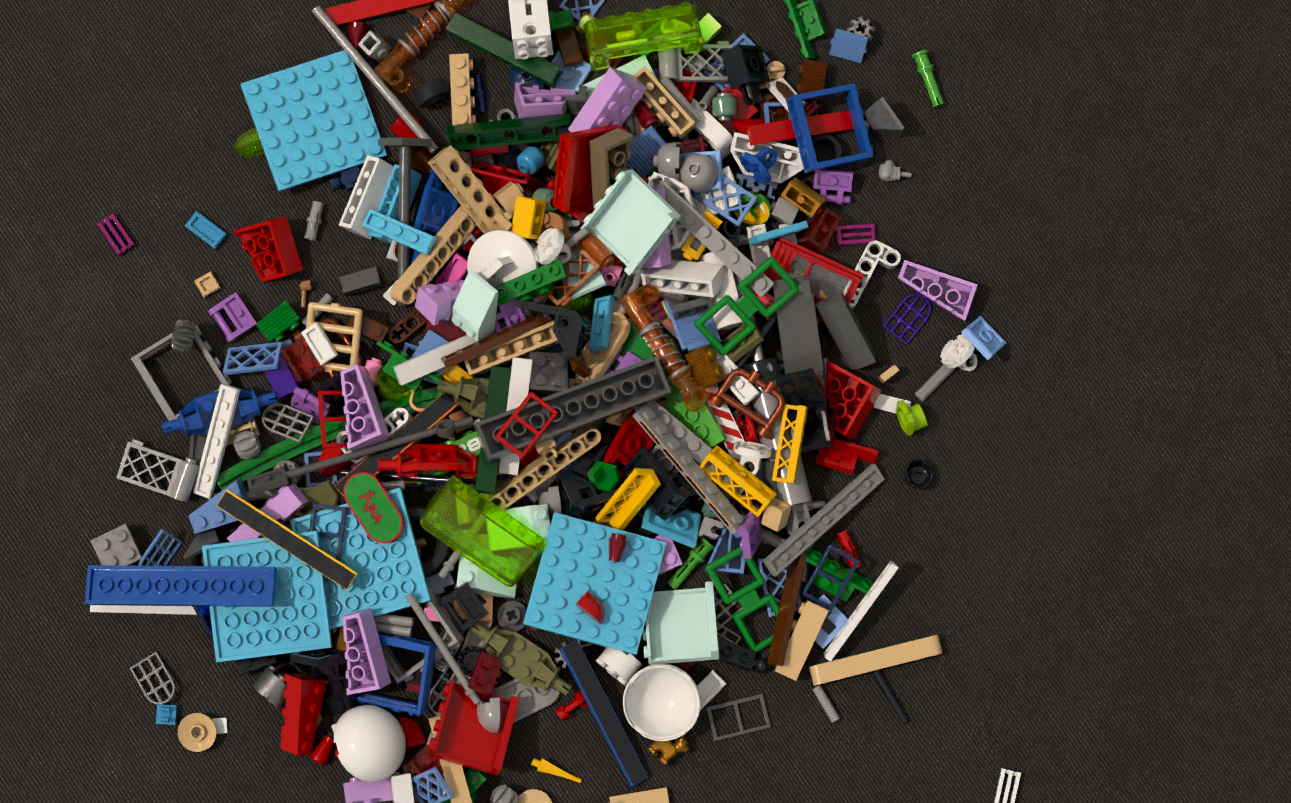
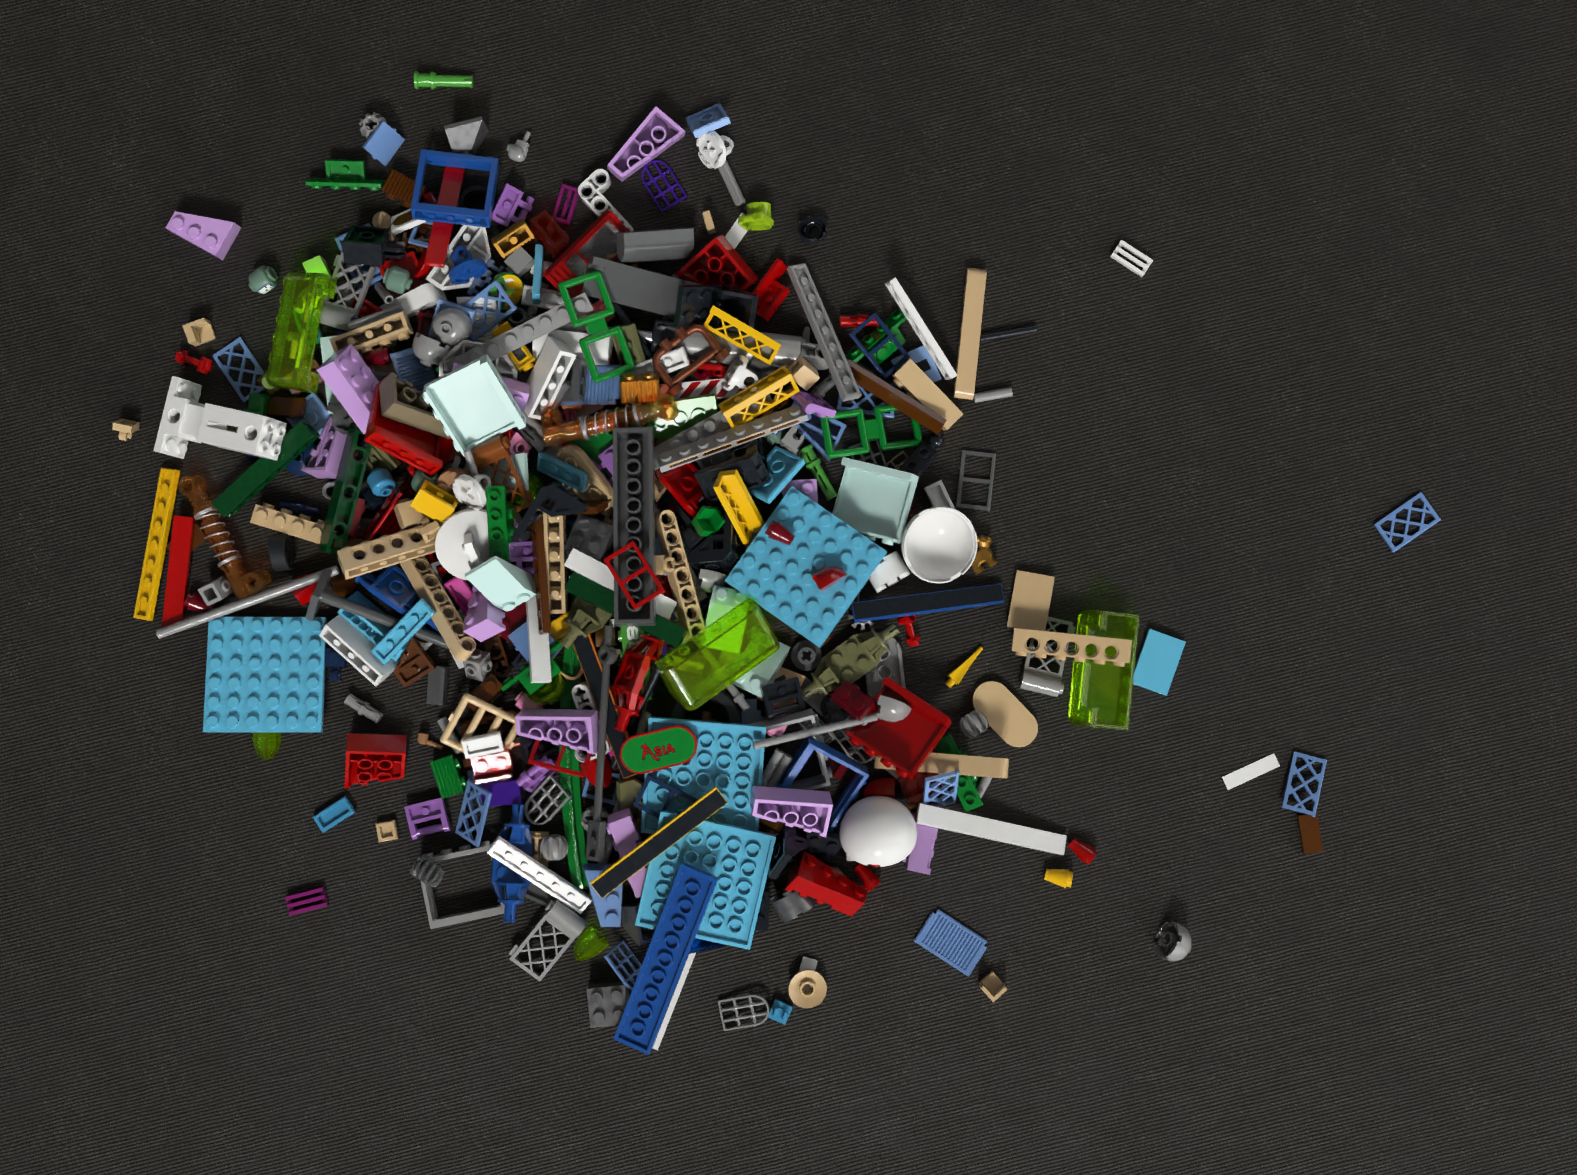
camera: 65 degrees left, 5 degrees up
(166, 511) = (589, 945): none -> clear neon green brick
(372, 252) = (413, 663): none -> reddish brown wing
(392, 312) = (478, 665): none -> light grey brick

